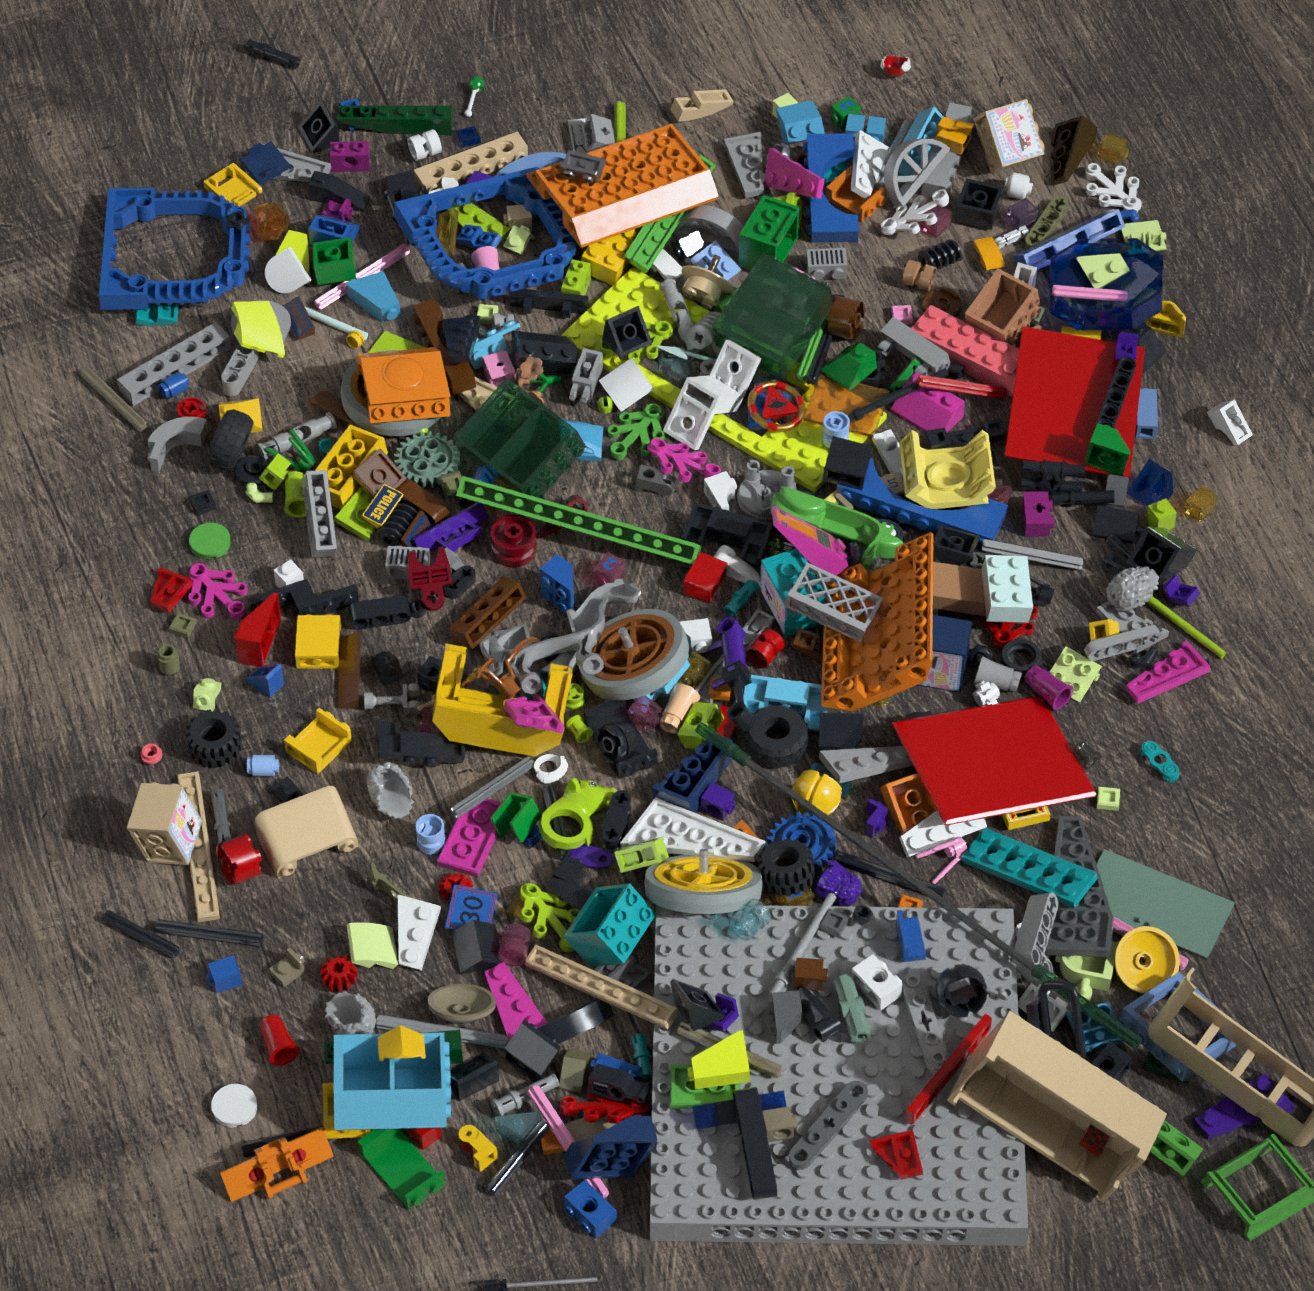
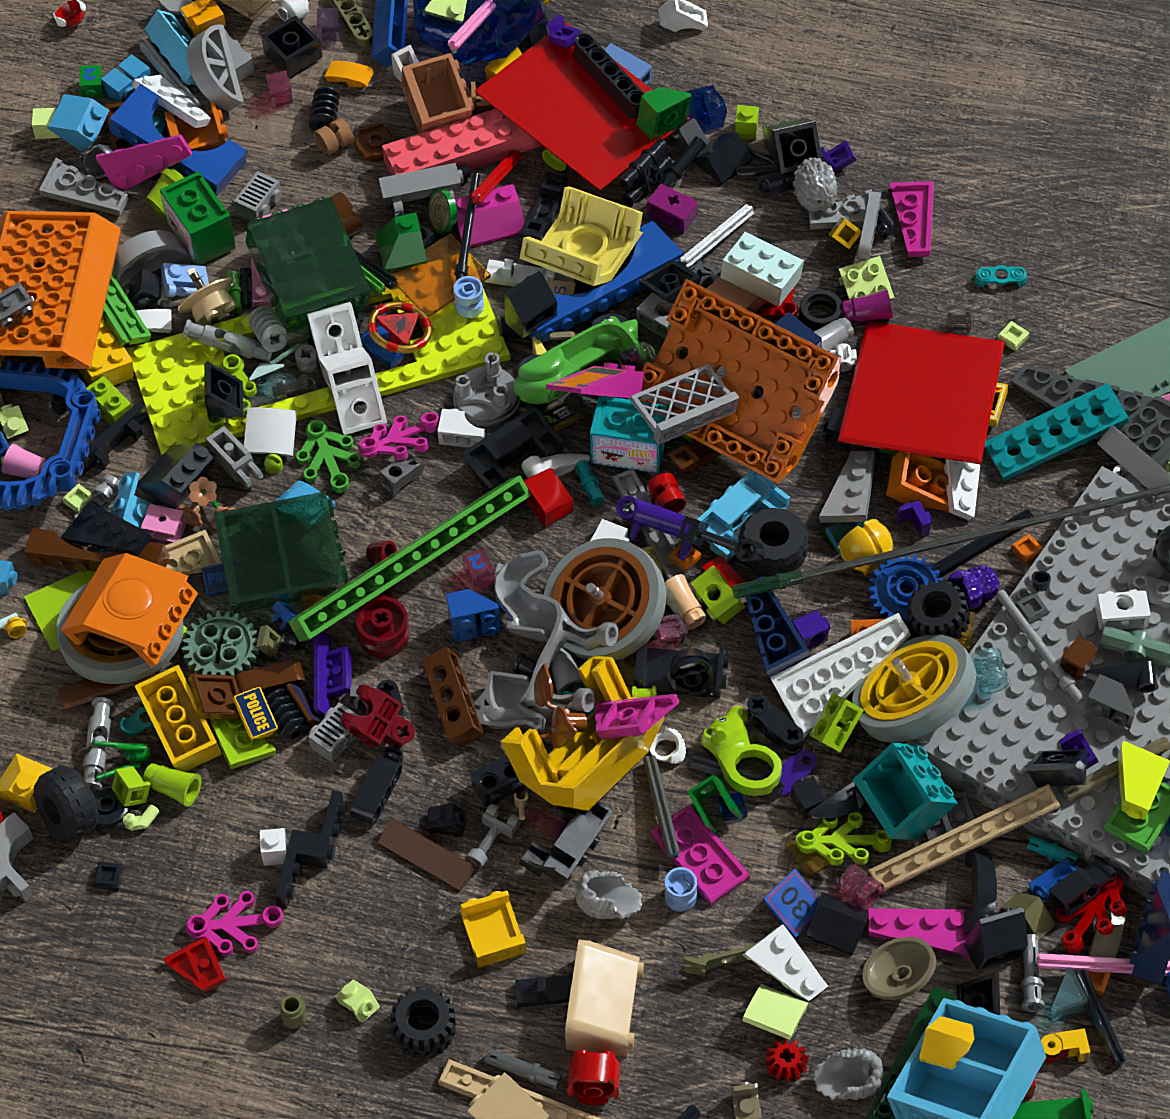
camera: 55 degrees left, 5 degrees up
(150, 749) = (394, 1085): coral plate -> none
(182, 625) = (251, 977): olive tile -> none
(209, 540) = (163, 894): bright green tile -> none
(258, 632) = (332, 914): red slope -> none
(262, 765) = (486, 995): light blue brick -> none
(267, 679) = (379, 935): blue slope -> none
(317, 641) = (371, 862): yellow panel -> none
(319, 513) = (225, 773): light grey brick -> none
(445, 888) = (746, 912): red gear -> none
(467, 1035) = (914, 1003): light grey axle -> none
(840, 731) = (808, 493): black slope -> none
(902, 313) = (362, 177): bright pink tile -> none
(910, 938) = (1088, 559): blue panel -> none
(915, 213) = (256, 124): white plant -> none
(953, 848) = (990, 478): bright pink plant -> none
(1011, 236) = (343, 45): axle -> none
(1187, 627) = (880, 174): lime bar -> none
(1201, 503) = (753, 87): clear yellow brick -> none

